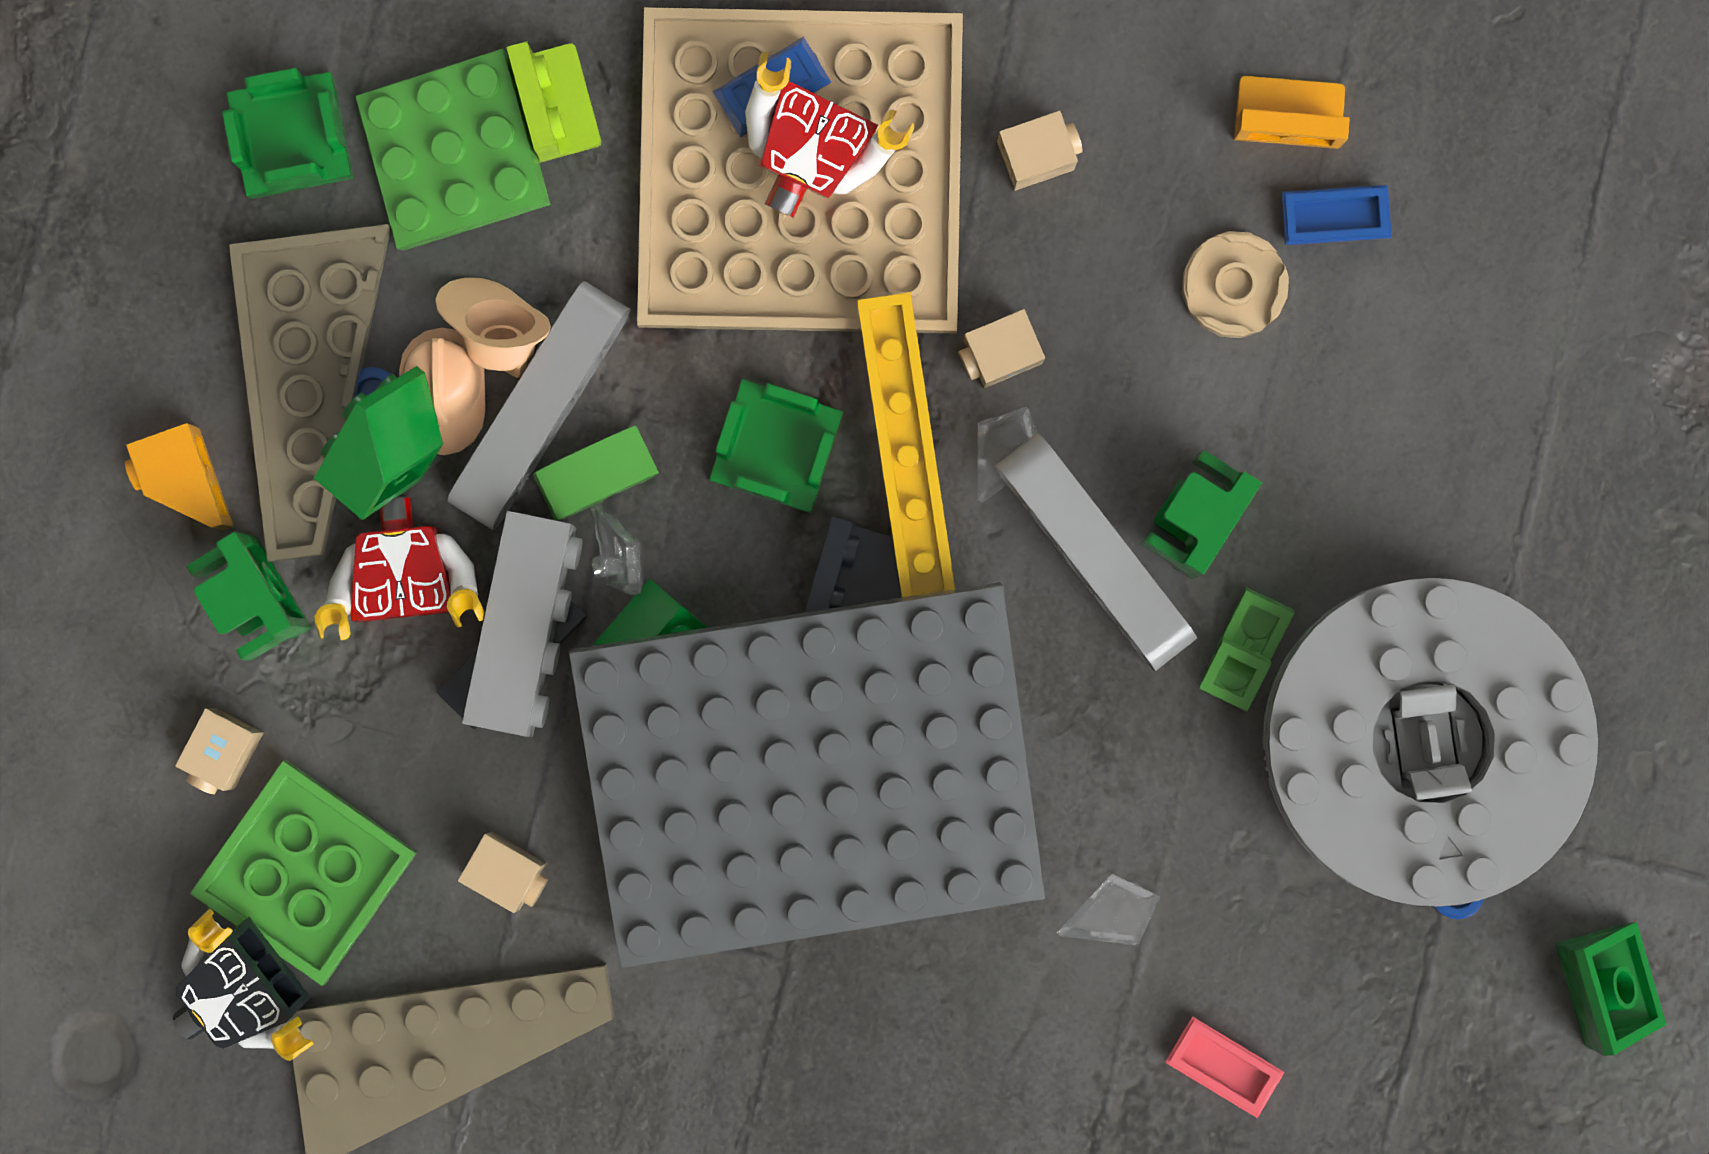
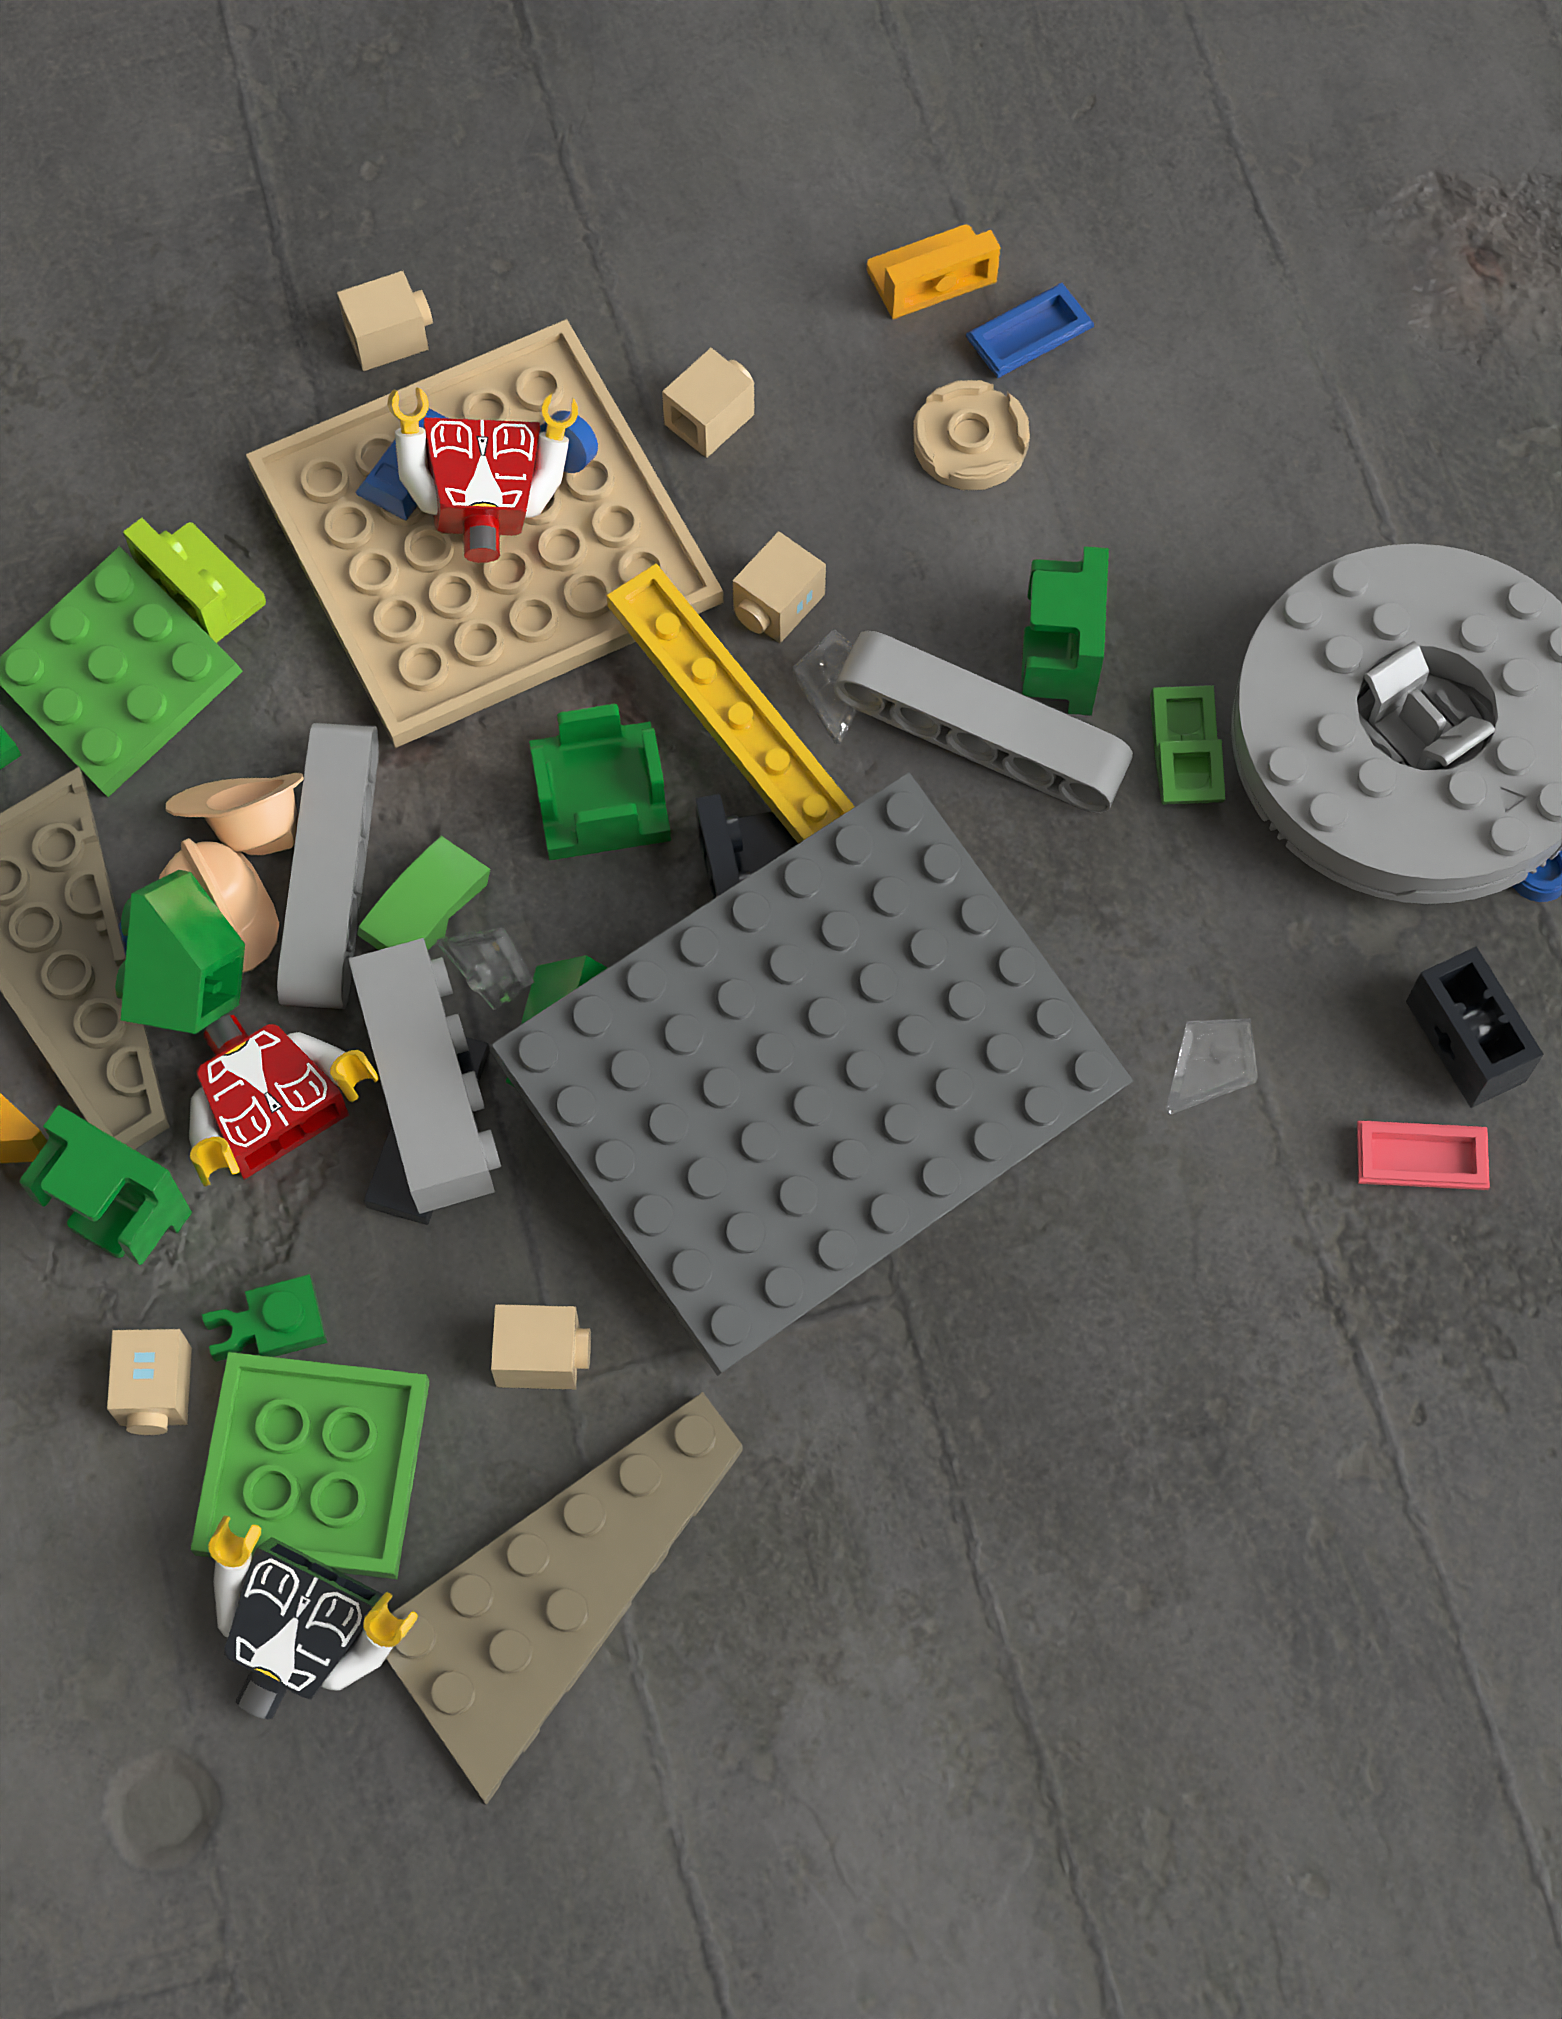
camera: 30 degrees left, 20 degrees down
(333, 747) = (279, 1320): none -> green plate
(908, 154) = (582, 442): none -> blue tile
(1317, 1000) = (1474, 1027): none -> black brick

